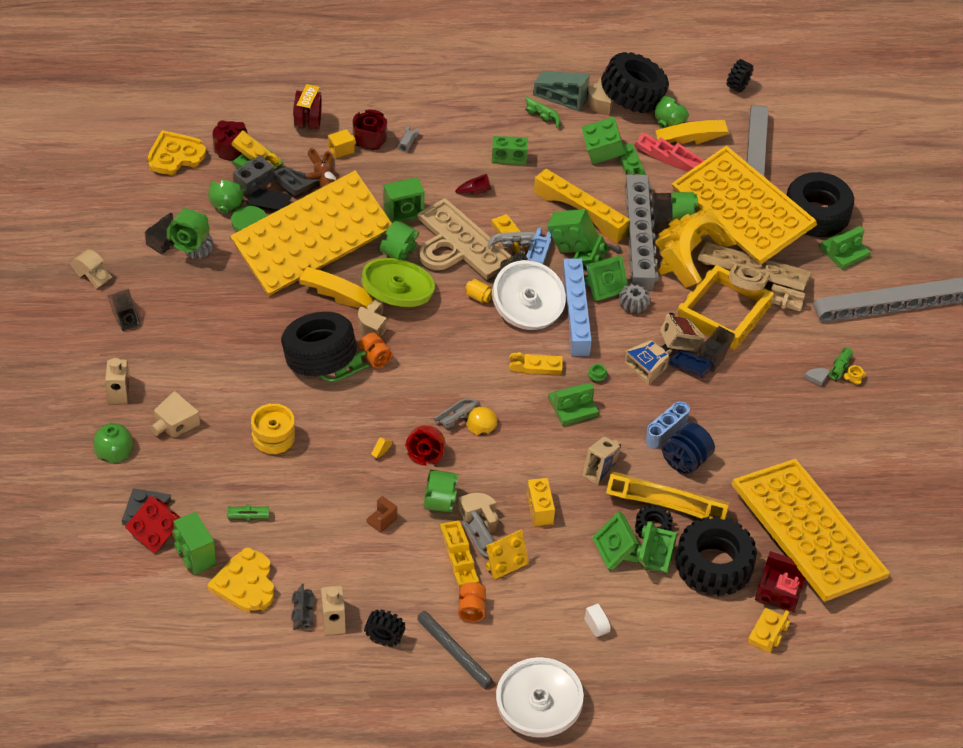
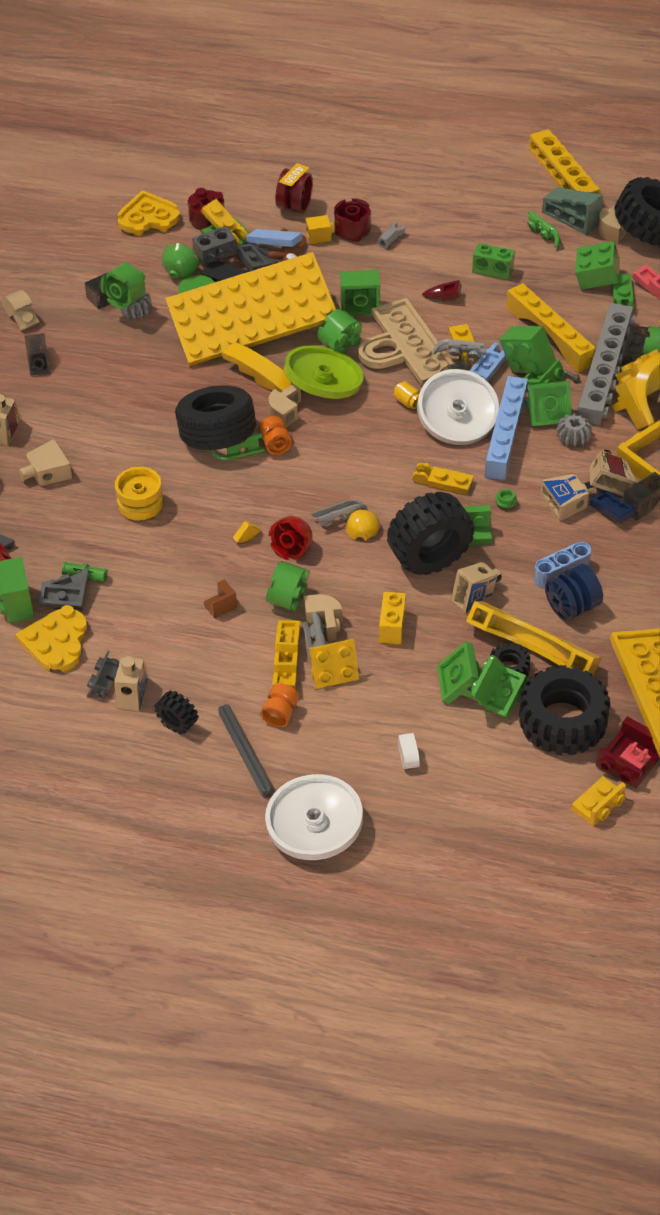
camera: 20 degrees right, 0 degrees up
(238, 535) = (65, 591): none -> dark grey wing
(306, 159) = (274, 237): none -> light blue tile
(536, 47) = (560, 163): none -> yellow brick
(552, 419) = (430, 533): none -> black tyre

